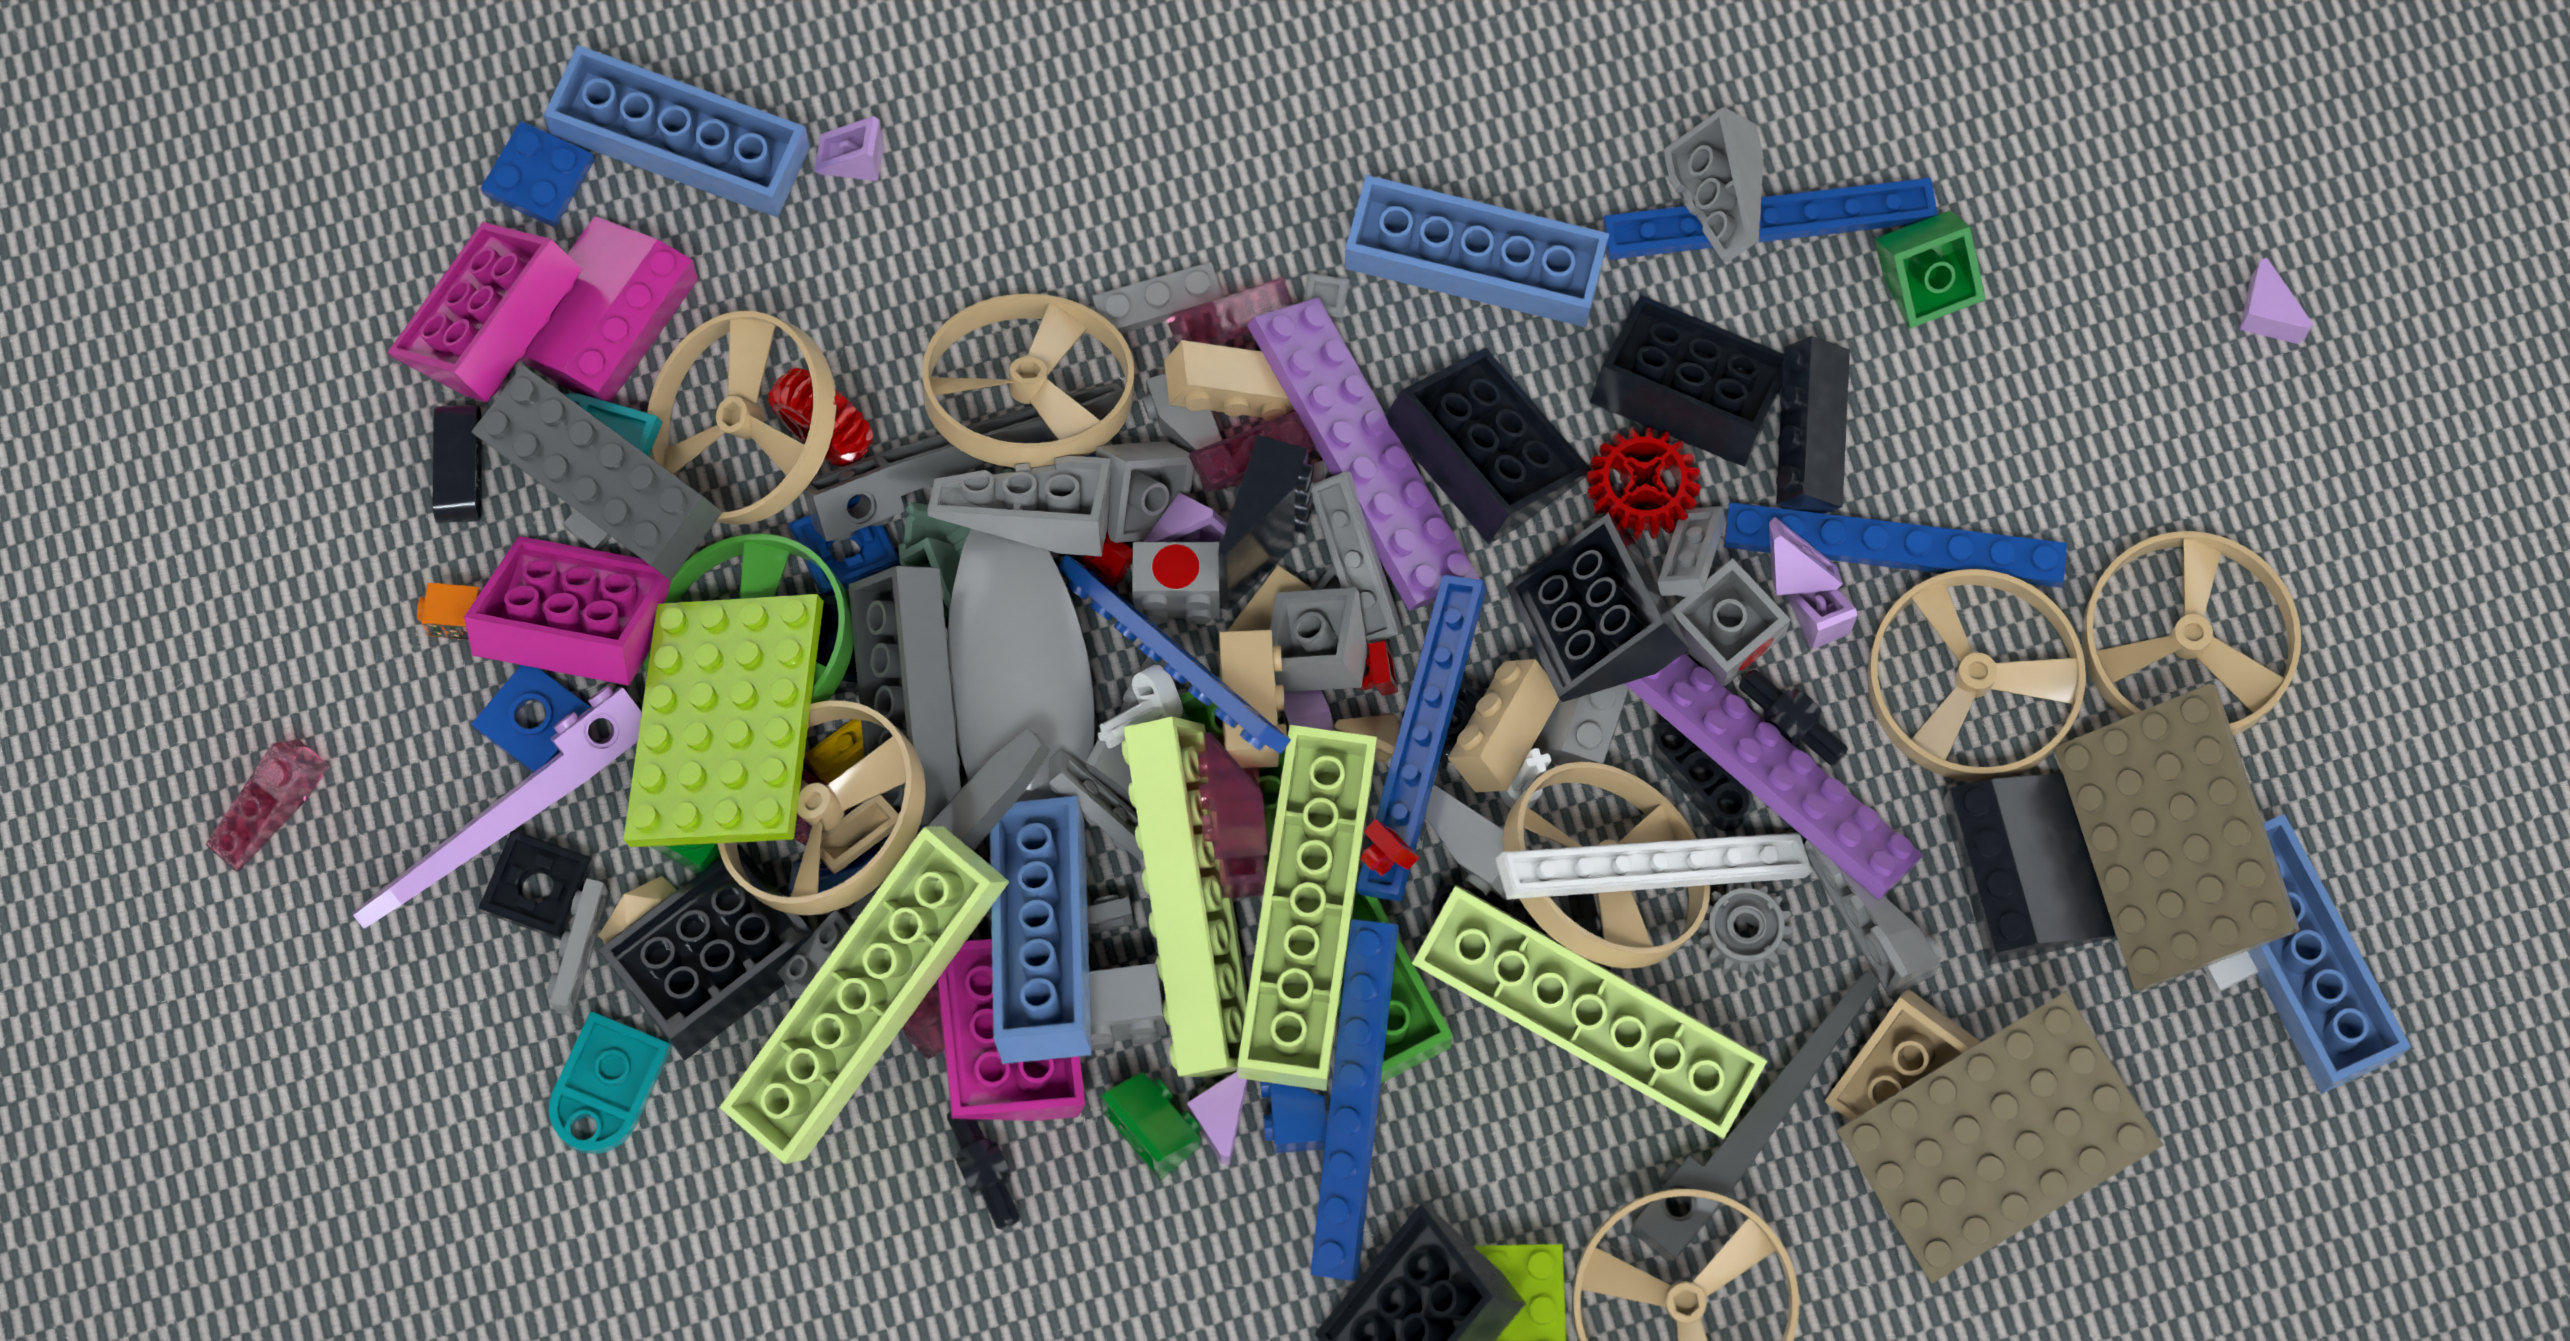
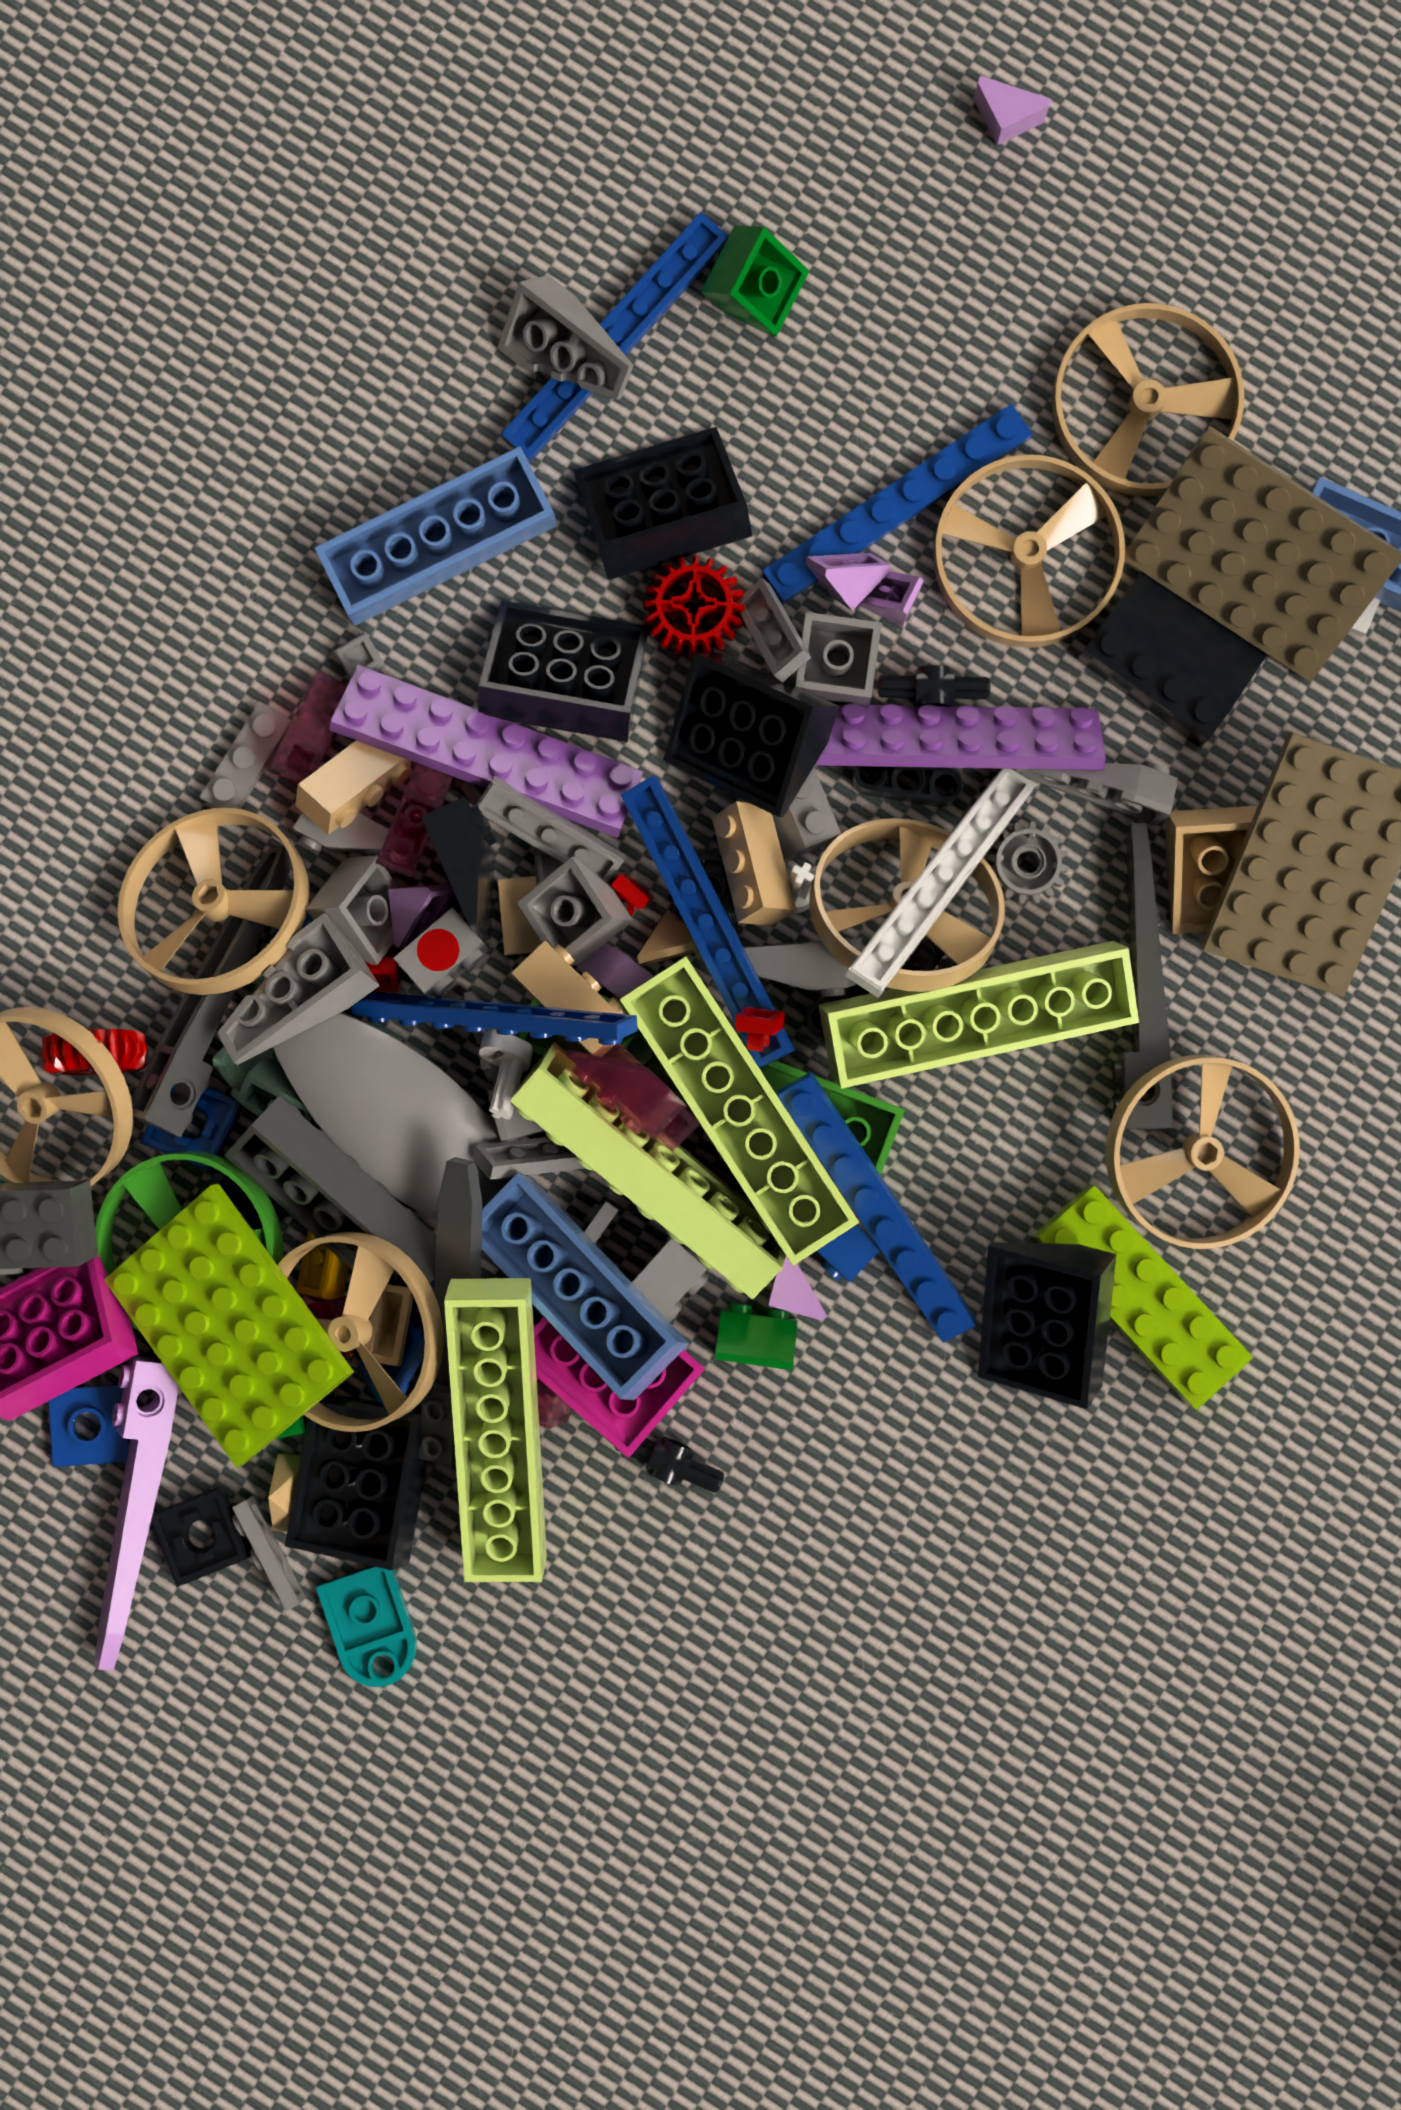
camera: 40 degrees left, 15 degrees up
(1813, 426) = (774, 466): black brick -> none

